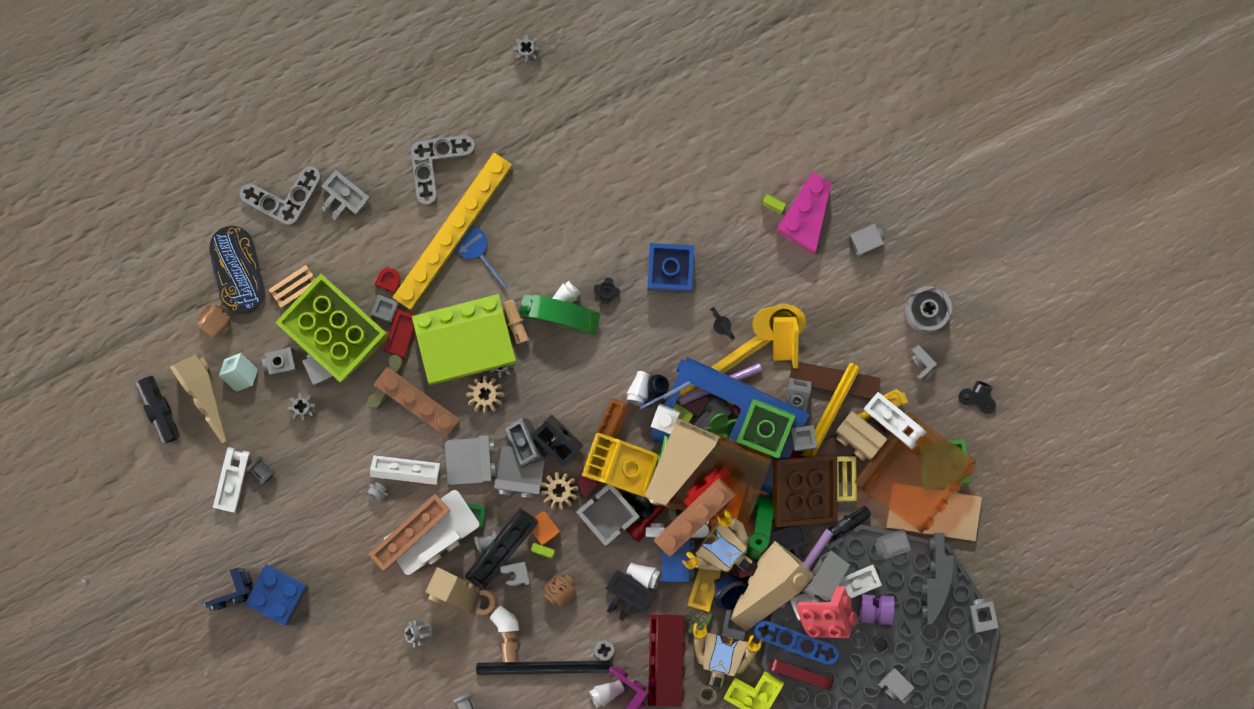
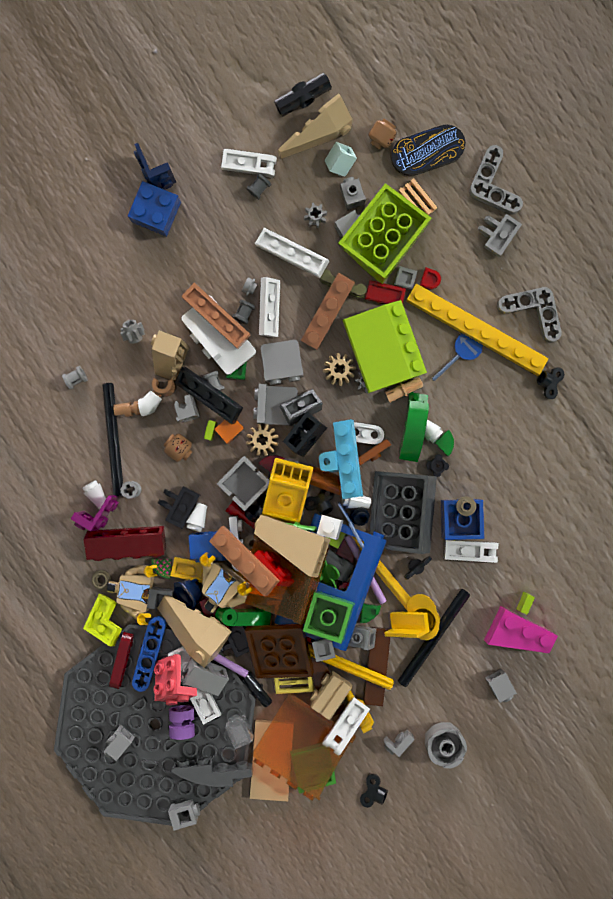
camera: 85 degrees right, 5 degrees up
(343, 438) = (292, 252): none -> white tile
(407, 500) = (243, 311): none -> dark grey bush
(521, 152) = (550, 381): none -> black piece
(562, 371) = (365, 433): none -> white plate
(581, 278) = (446, 443): none -> green tile
(586, 363) = (374, 453): none -> dark orange plate
(590, 397) = (344, 459): none -> medium azure plate
(638, 429) = (321, 503): none -> black piece
(655, 270) = (459, 506): none -> dark tan plate
(655, 334) = (403, 510): none -> dark grey slope
(709, 261) = (470, 551): none -> white plate
(771, 384) = (369, 612): none -> green tile
(810, 315) = (429, 645): none -> black axle

